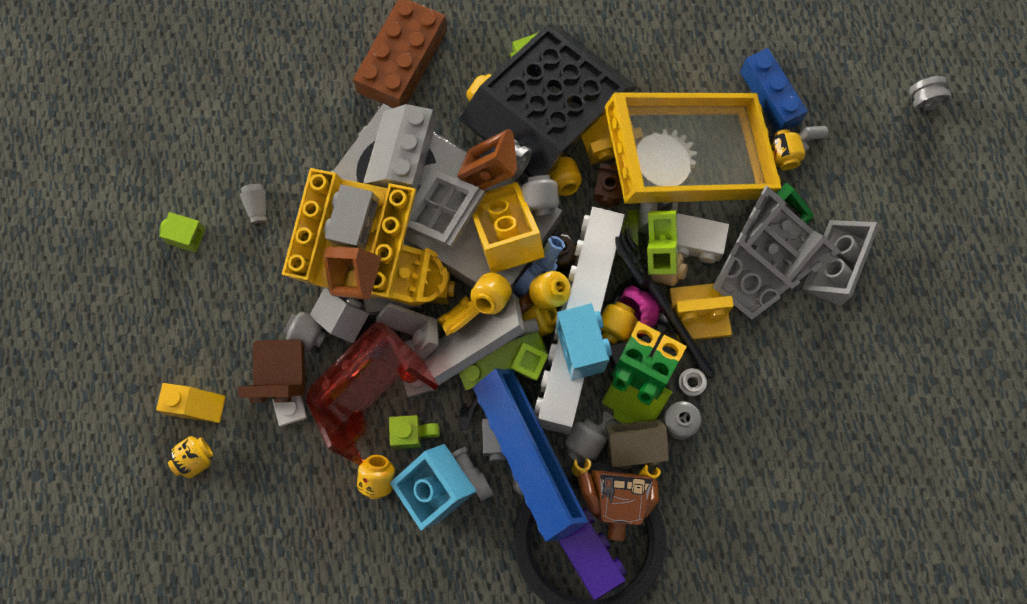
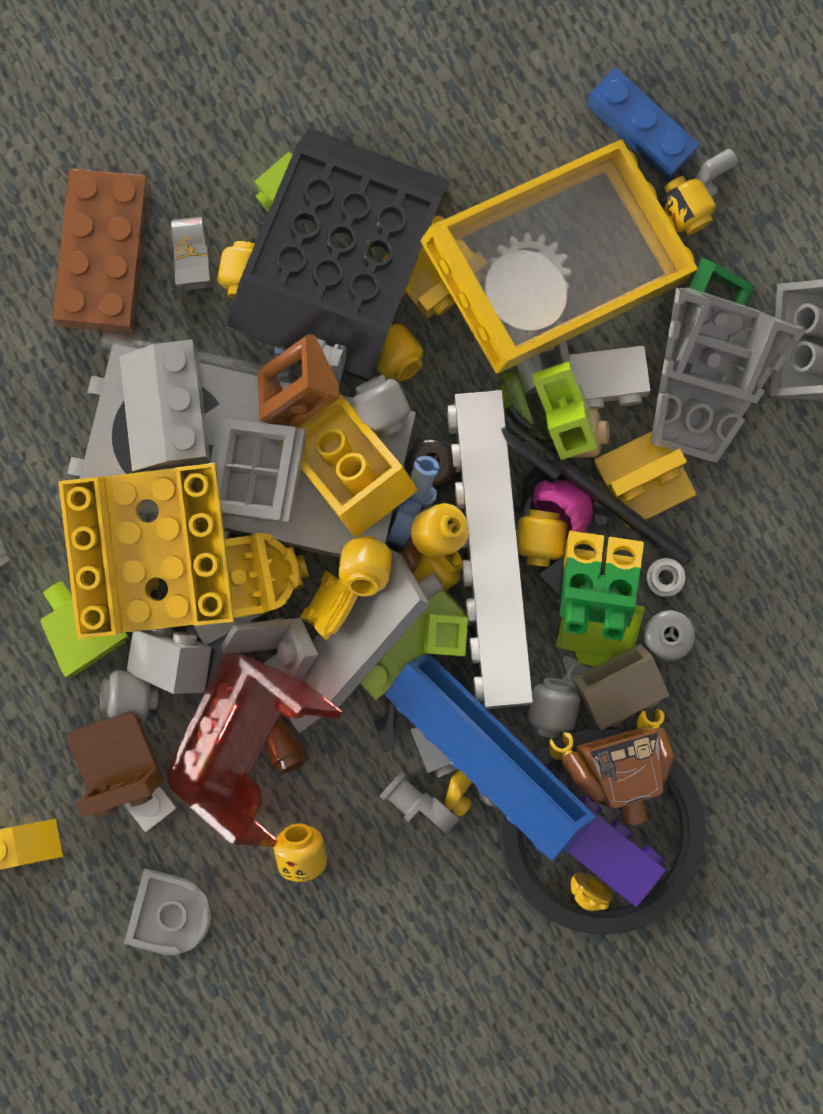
camera: 20 degrees left, 10 degrees up
(190, 457) = (46, 915): yellow head -> none
(272, 488) = (168, 914): none -> light grey tile
(284, 290) = (60, 628): none -> lime torso
(351, 217) = (141, 531): light grey brick -> none
(365, 266) = (191, 594): dark orange tile -> none
(393, 402) = (284, 748): none -> reddish brown cone
(407, 432) = (319, 779): lime brick -> none
(432, 486) = (380, 839): medium azure brick -> none
(455, 75) = (191, 254): none -> light grey leg
(496, 478) = (454, 798): none -> yellow arm
(566, 578) = (590, 892): none -> yellow animal
(582, 341) = (509, 591): medium azure brick -> none
(607, 195) = (462, 360): reddish brown brick -> none

